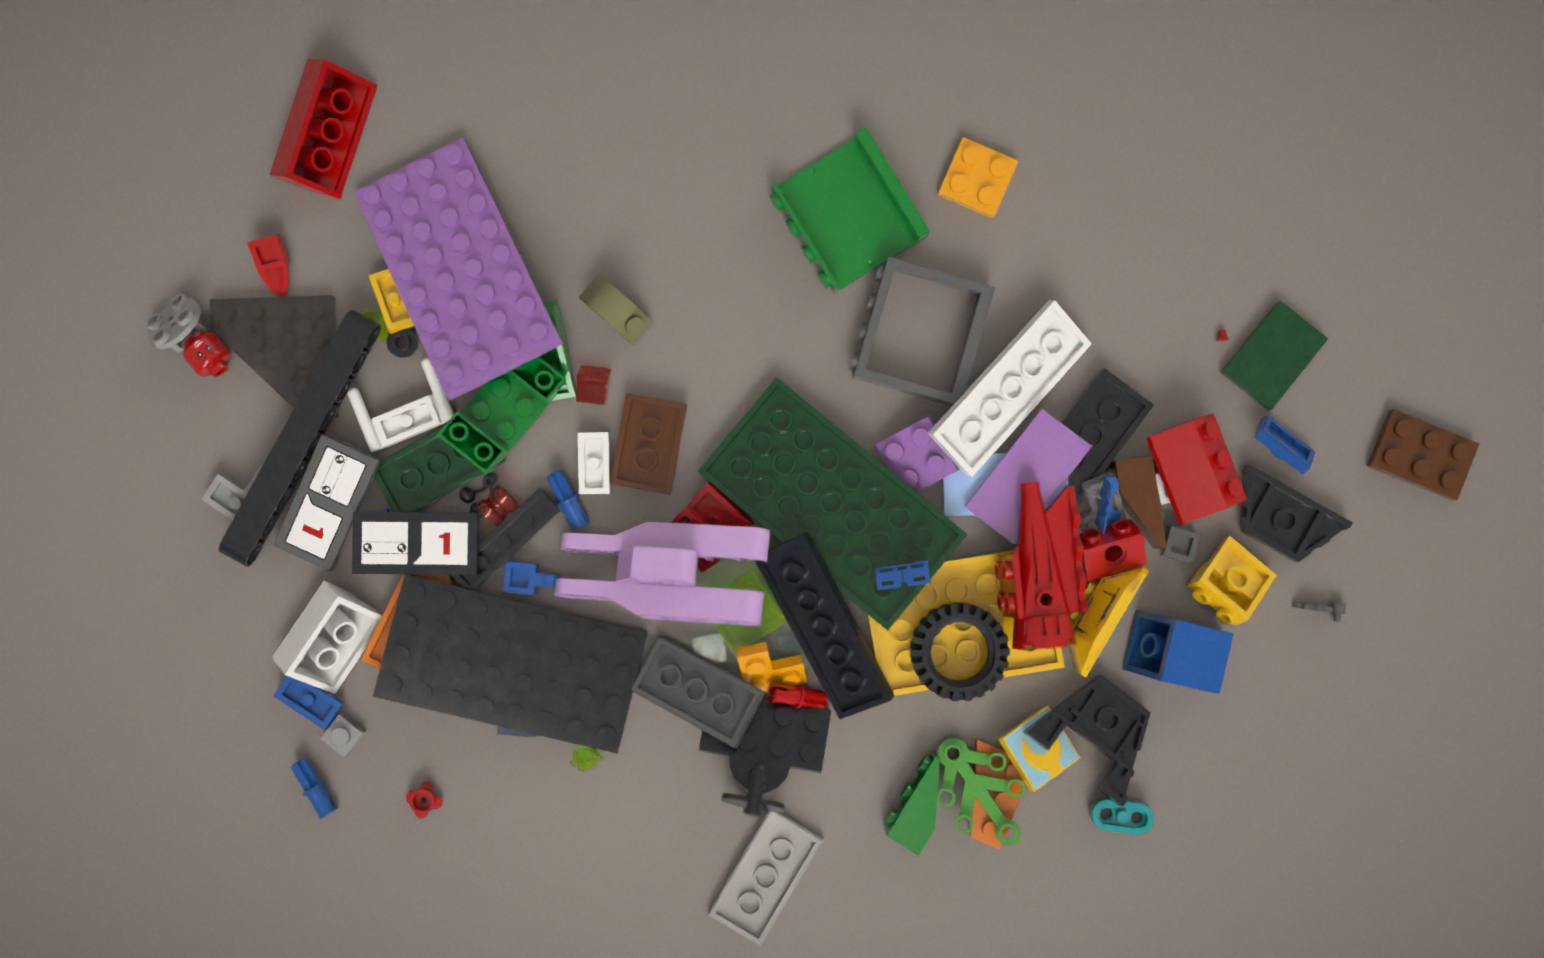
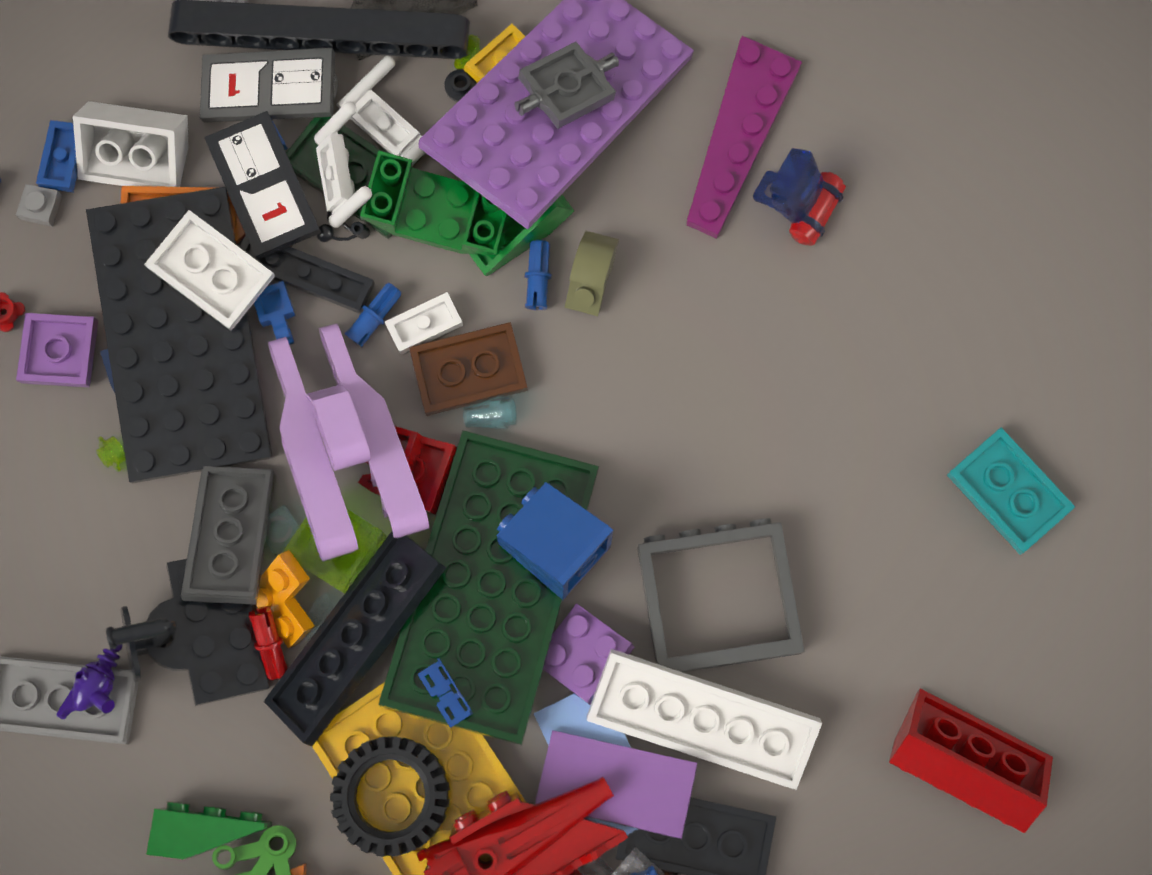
camera: 65 degrees right, 10 degrees down
(432, 478) = (334, 169): none -> white plate
(453, 254) = (566, 84): none -> dark grey plate
(474, 616) = (209, 270): none -> white plate
(478, 768) = (57, 350): none -> medium lavender plate
(497, 505) = (337, 248): clear red wheel -> none
(534, 117) = (746, 114): none -> magenta wing
(593, 384) = (504, 287): clear red slope -> none
(595, 353) = (538, 275): none -> blue axle
(631, 110) = (802, 195): none -> clear blue piece
(694, 441) = (492, 413): none -> clear light blue cone
(769, 845) = (93, 685): none -> dark purple piece
(822, 437) = (554, 538): none -> blue slope
(849, 212) = (808, 463): green panel -> none
(942, 67) = (1010, 491): none -> teal plate
(978, 178) = (914, 582): light orange plate -> none
(1131, 201) = (973, 761): none -> red slope

